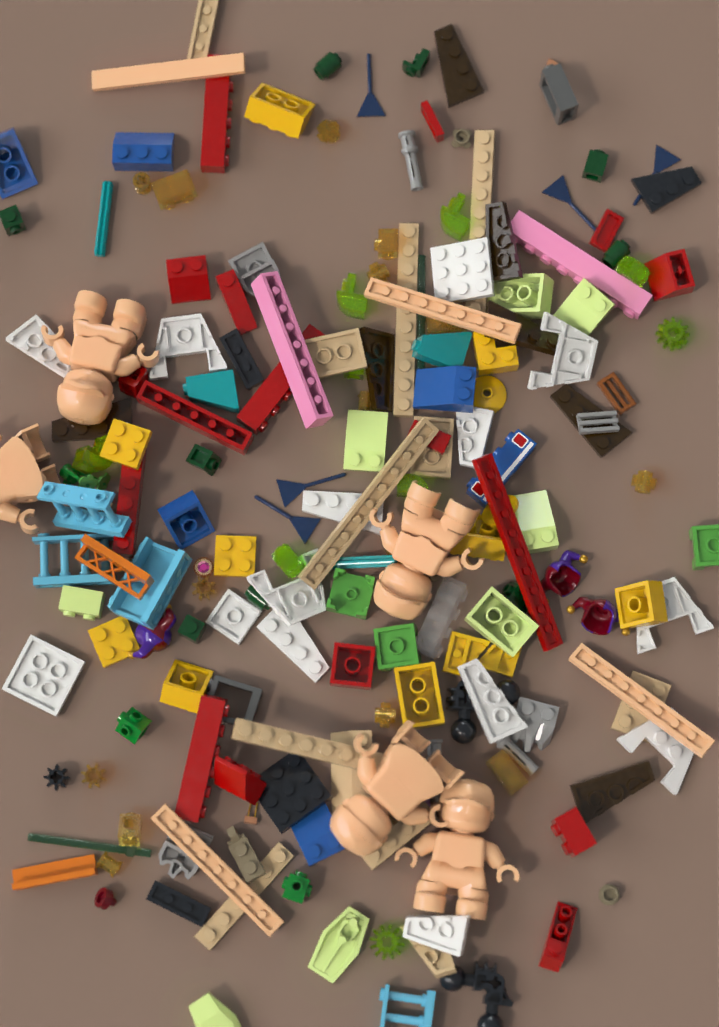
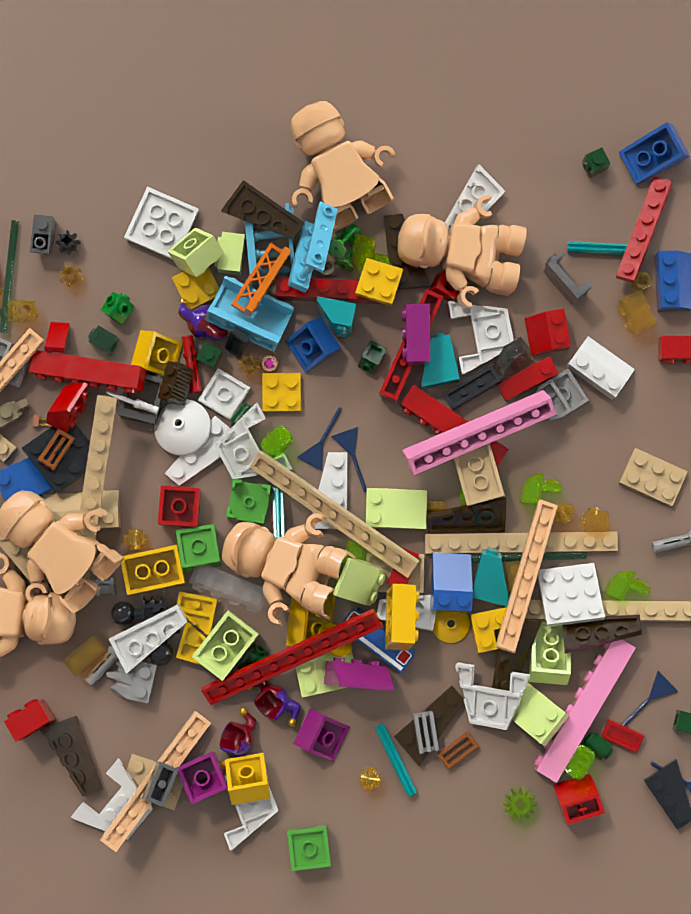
camera: 85 degrees right, 5 degrees up
(39, 565) = (258, 209): none -> dark brown wing
(46, 804) = (42, 234): none -> dark grey slope
(79, 636) = (196, 252): none -> yellowish green brick
(87, 176) = (644, 229): none -> plate
(137, 259) = (563, 281): none -> flat silver panel
(159, 488) = (337, 315): none -> teal slope
(161, 791) = (57, 337): none -> red tile
(167, 743) = (103, 339): none -> clear green brick
(180, 597) = (237, 343): none -> black tile
(184, 406) = (416, 334): none -> magenta brick
(191, 650) = (190, 359): none -> red pin
(214, 314) = (513, 359): none -> clear smoke slope
(220, 664) = (175, 383): none -> dark brown brick
(229, 229) = (600, 368): none -> white slope
(240, 704) = (137, 403): none -> white piece
(280, 659) = (189, 435): none -> white dish
(299, 804) = (48, 463): none -> dark orange tile
(344, 185) = (653, 477): none -> tan plate
(442, 476) = (359, 581): none -> yellowish green slope
(480, 437) = (401, 617): none -> yellow brick
(537, 486) = (357, 674): none -> magenta slope
(597, 529) = (321, 735): none -> magenta slope
(624, 456) = (395, 759): none -> teal axle
(639, 649) = (202, 777): none -> magenta slope
(645, 691) = (160, 784): none -> dark grey brick

